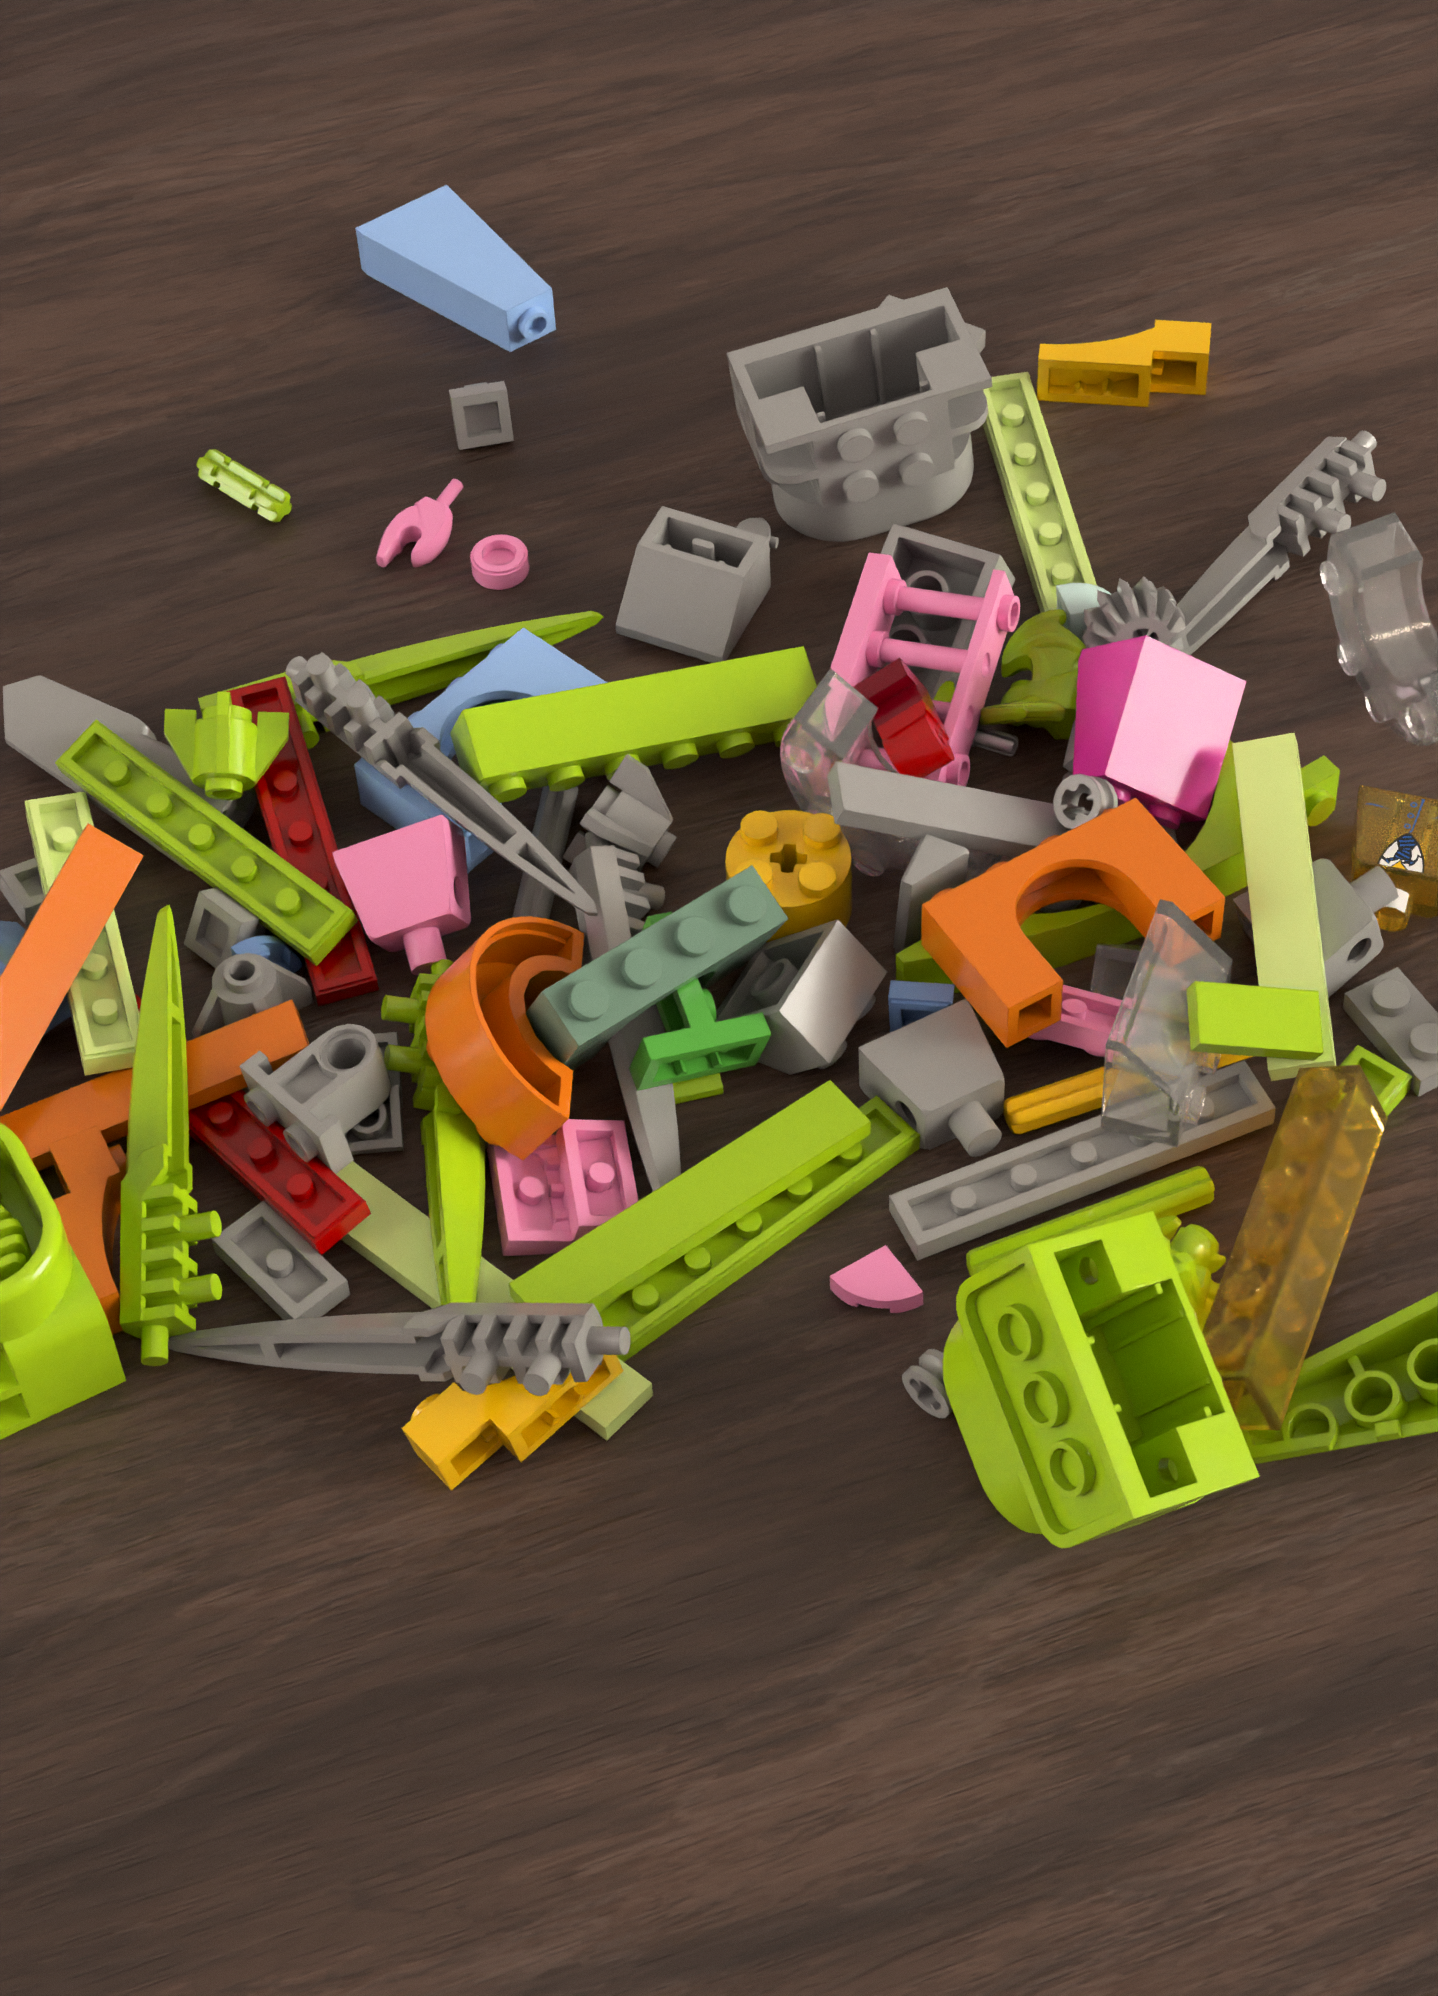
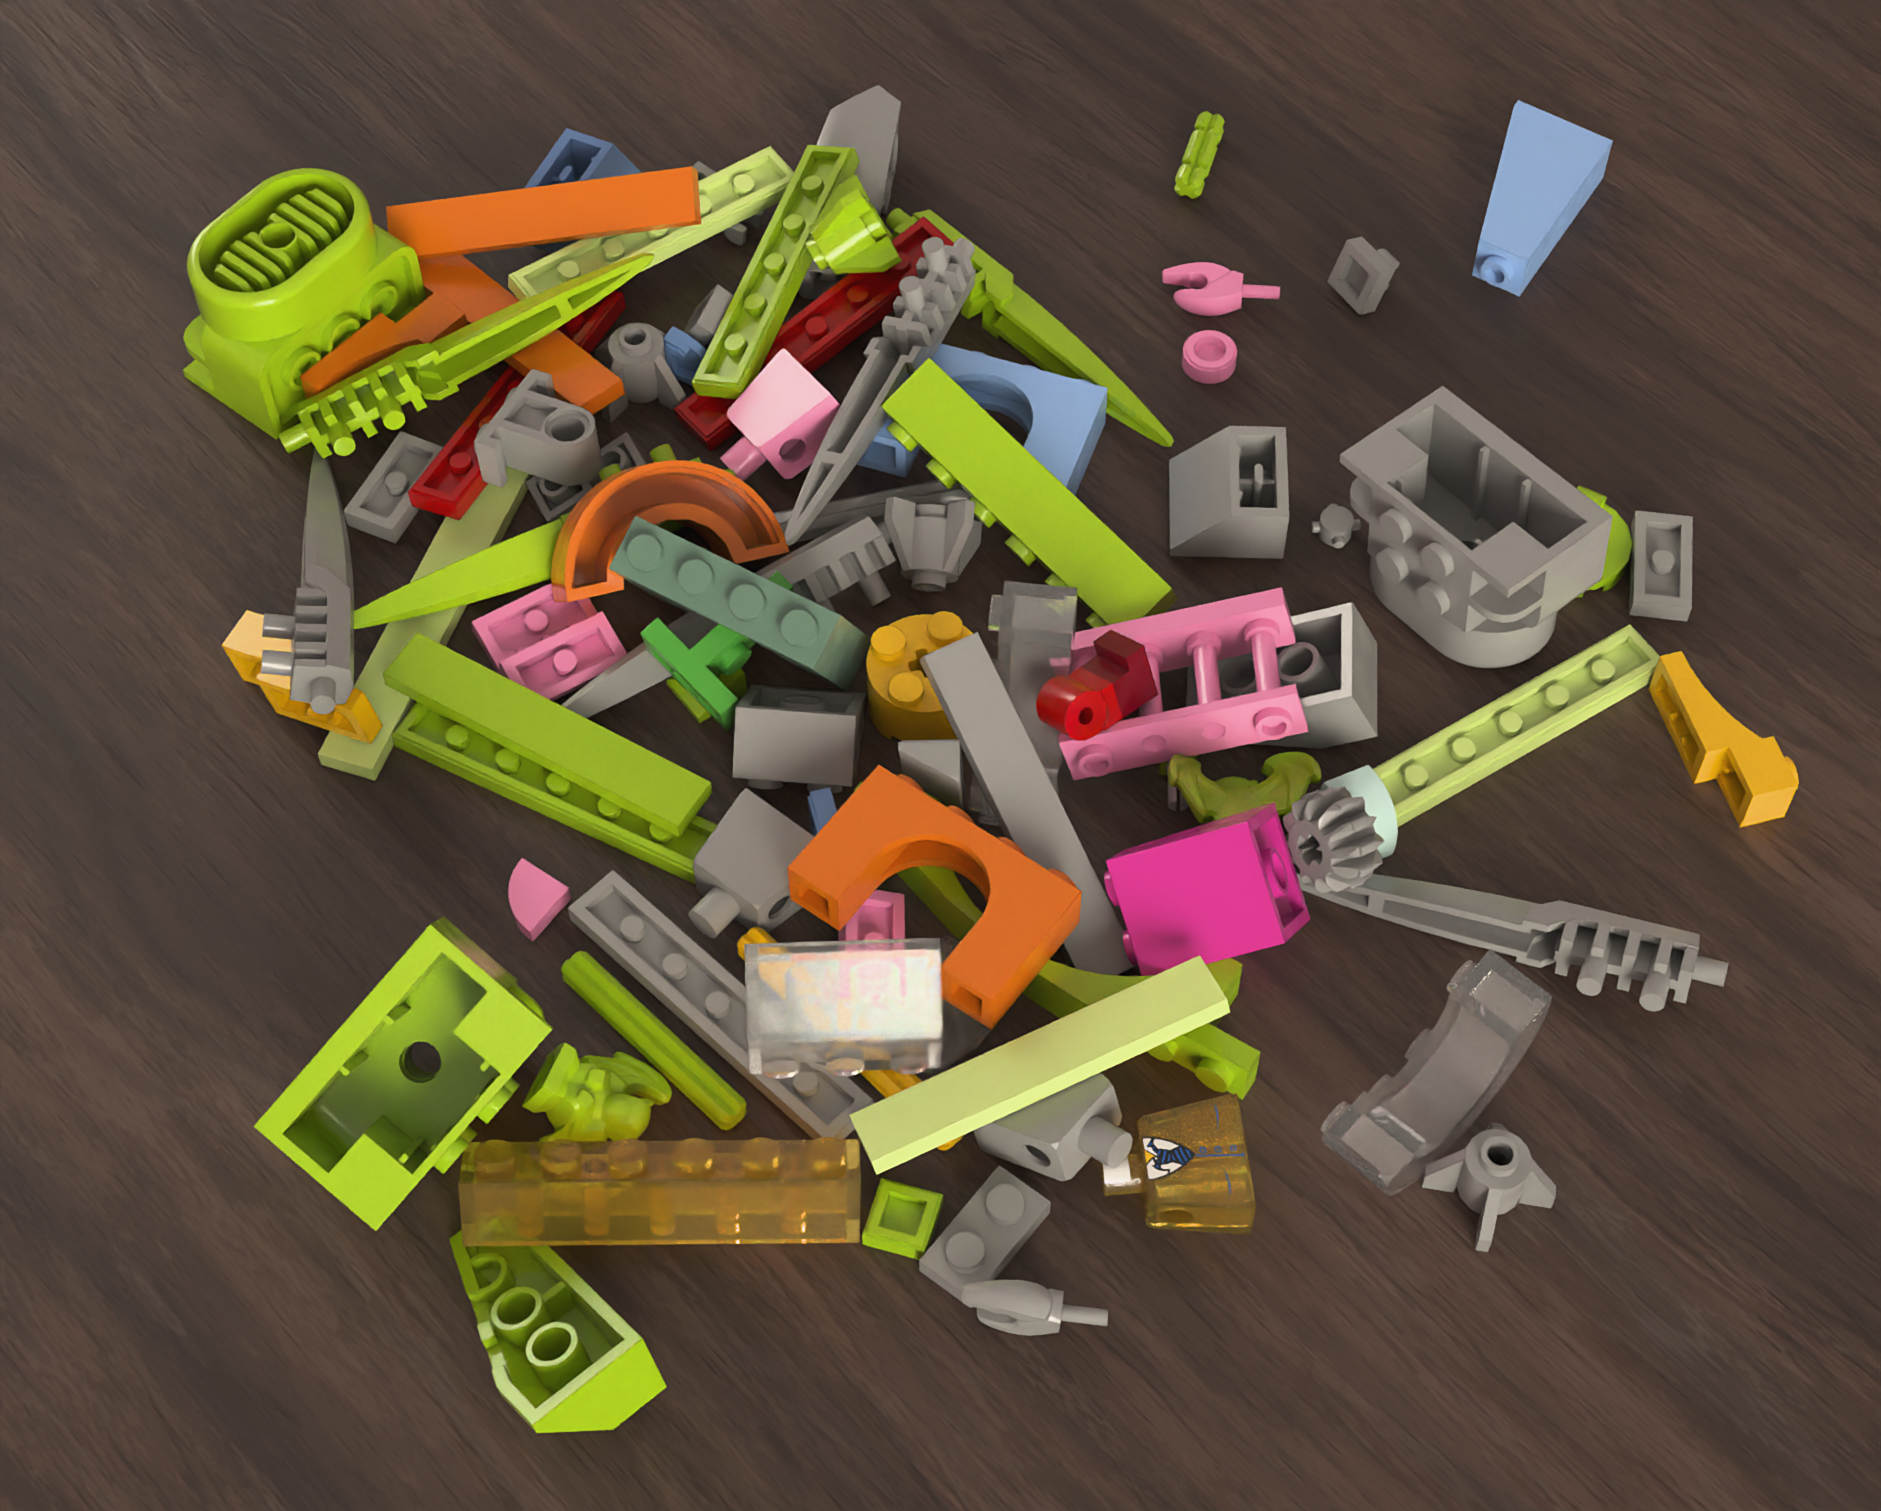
camera: 65 degrees right, 5 degrees up
(1068, 795) = (1076, 858): light grey bush -> none
(1254, 1020) = (863, 1072): lime tile -> none

